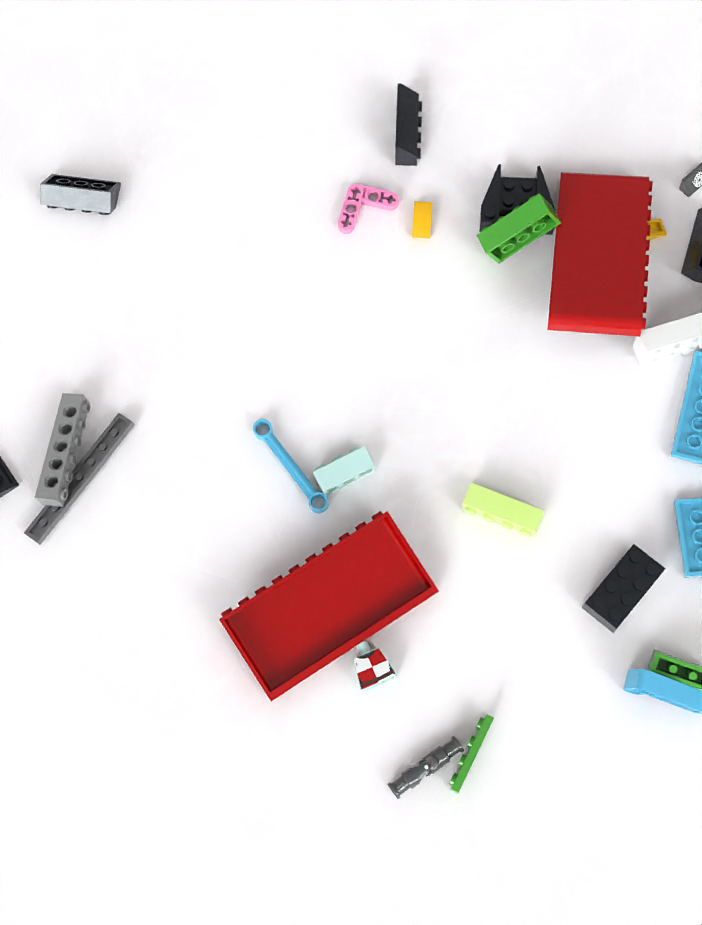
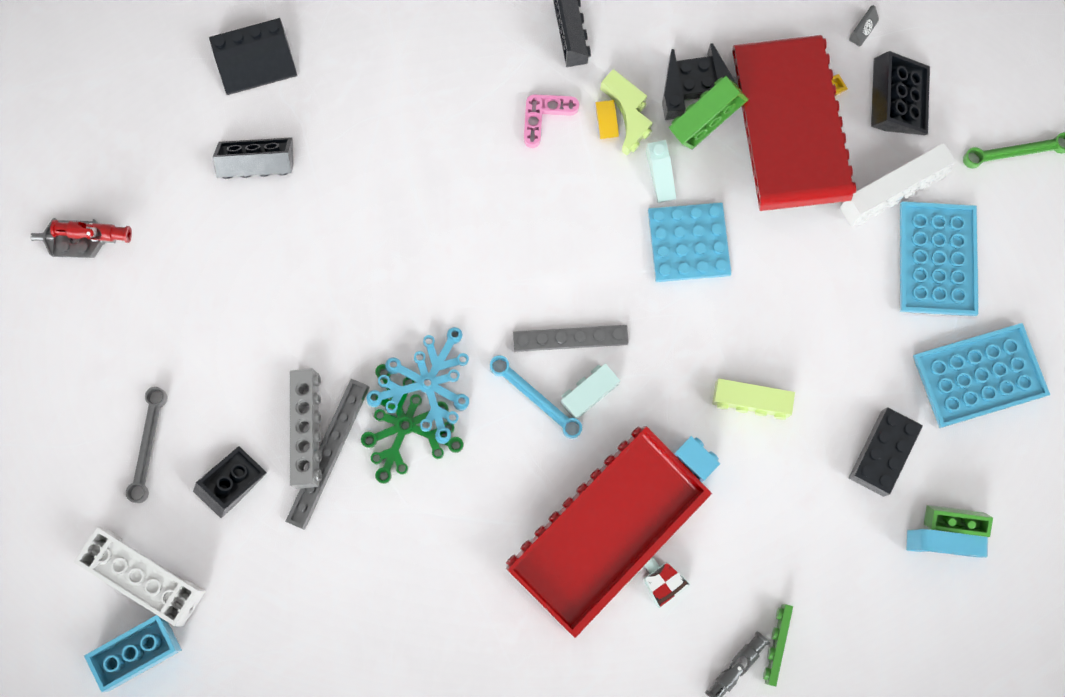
camera: 20 degrees left, 5 degrees up
(102, 102) = (253, 56): none -> black slope
(156, 445) = (393, 454): none -> green plant
(204, 415) = (438, 363): none -> medium azure plant
(337, 417) = (570, 338): none -> flat silver plate
(431, 555) = (697, 458): none -> medium azure piece
(448, 208) = (631, 104): none -> yellowish green arch
(463, 276) = (661, 170): none -> light aqua slope
(475, 350) = (689, 242): none -> medium azure plate

